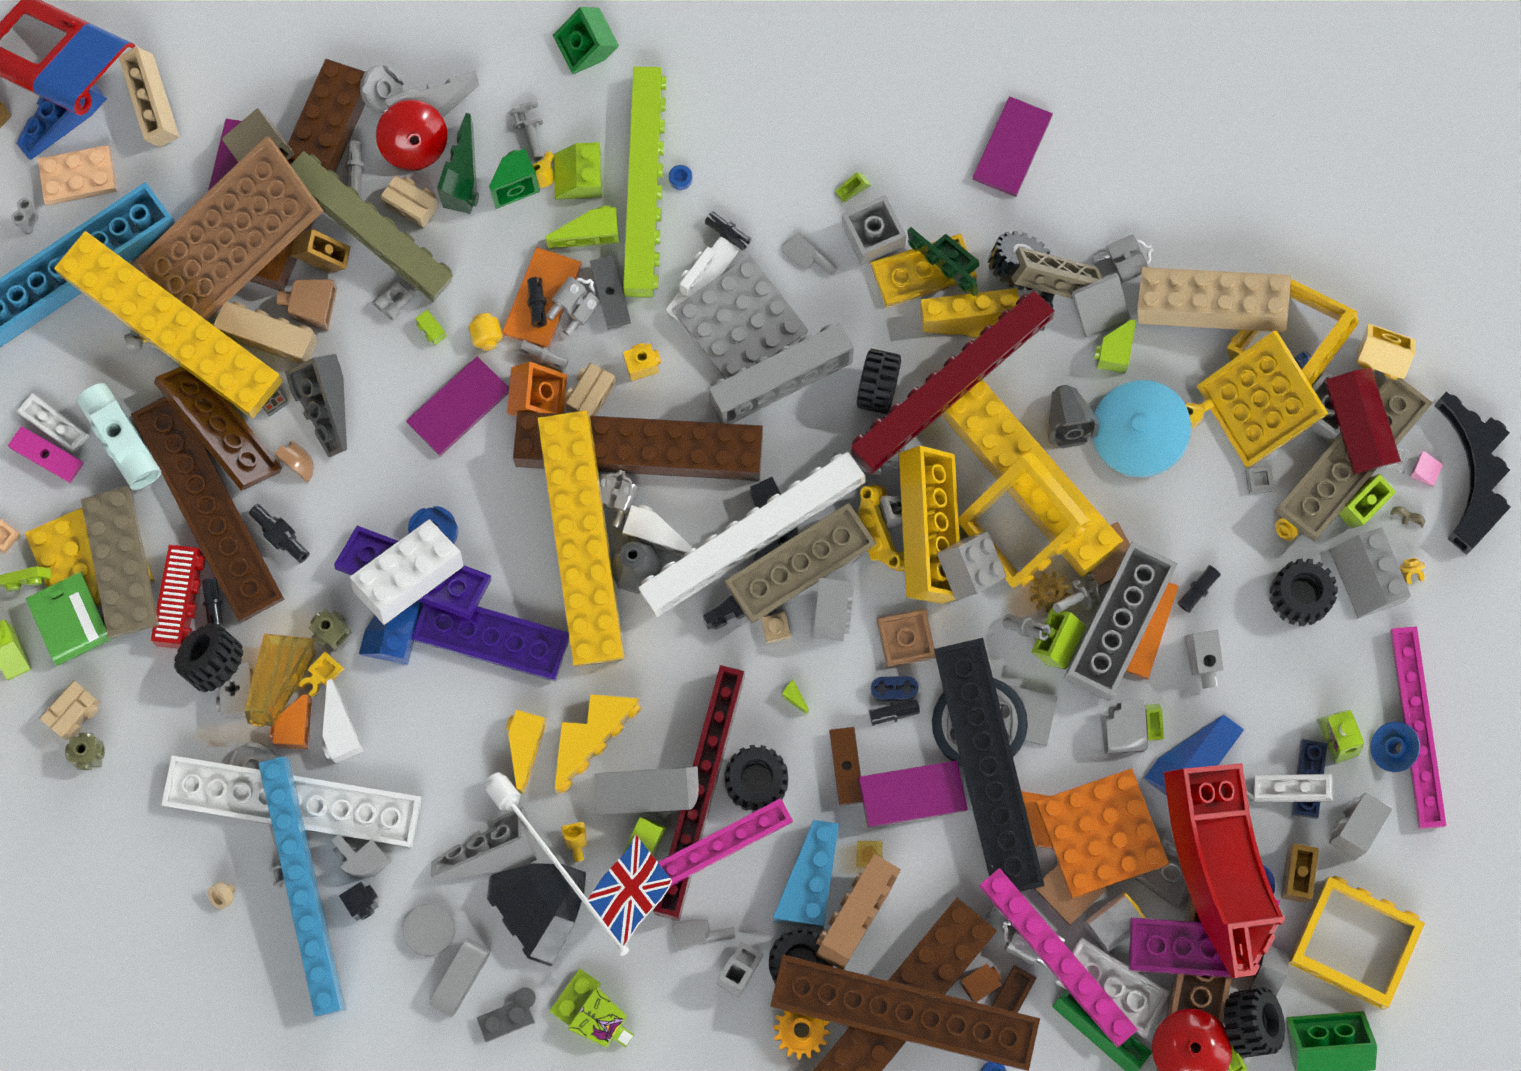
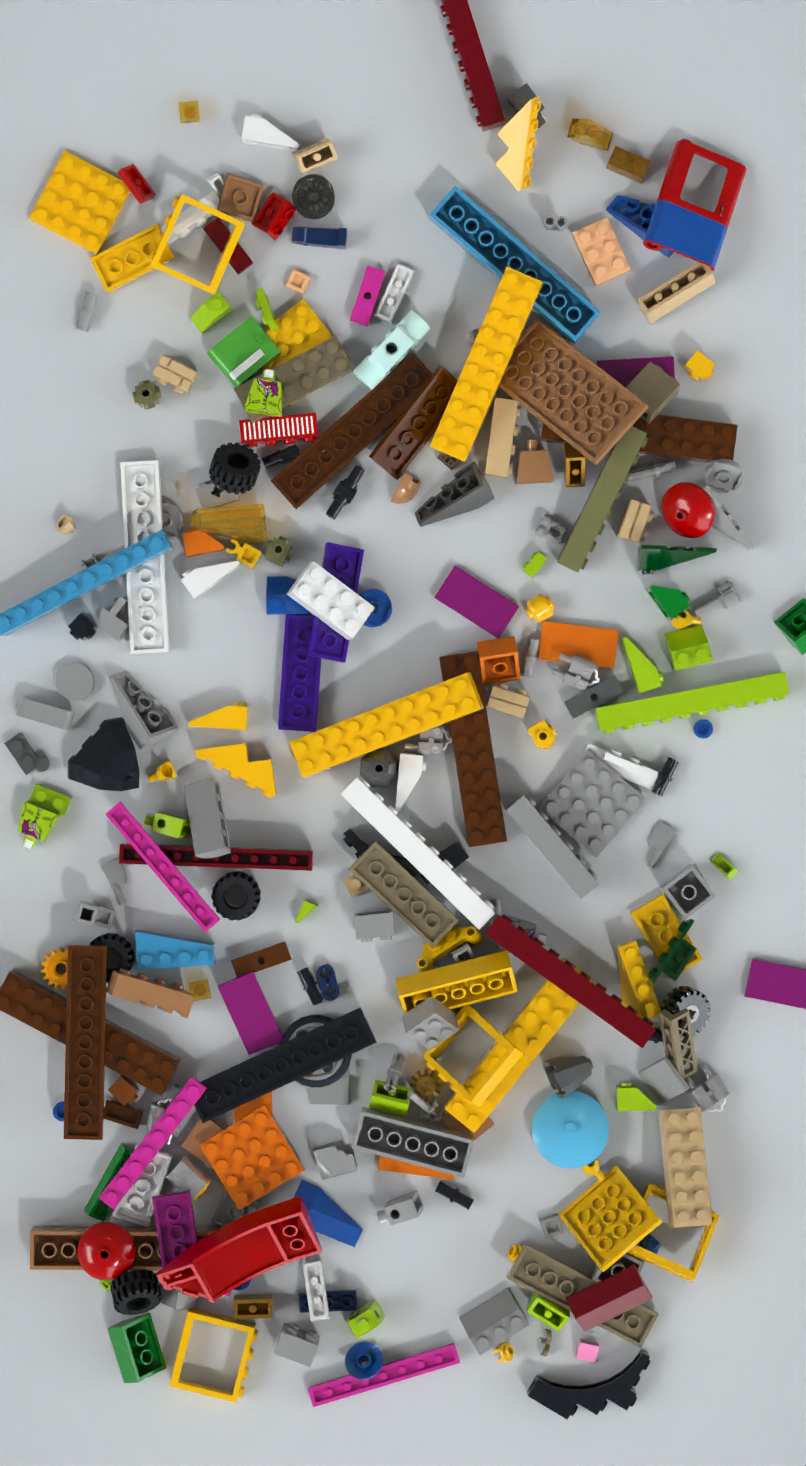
camera: 75 degrees right, 15 degrees up
(127, 593) = (265, 396): none -> lime torso
(245, 90) = (699, 367): none -> yellow brick
(536, 302) = (571, 643): black pin -> none
(625, 890) = (125, 822): flag -> none
(878, 381) = (562, 922): black tyre -> none
(906, 638) = (369, 983): medium nougat tile -> none
(1154, 722) = (346, 1179): lime piece -> none
(1311, 574) = (463, 1290): black tyre -> none
(1386, 352) = (671, 1306): yellow brick -> none

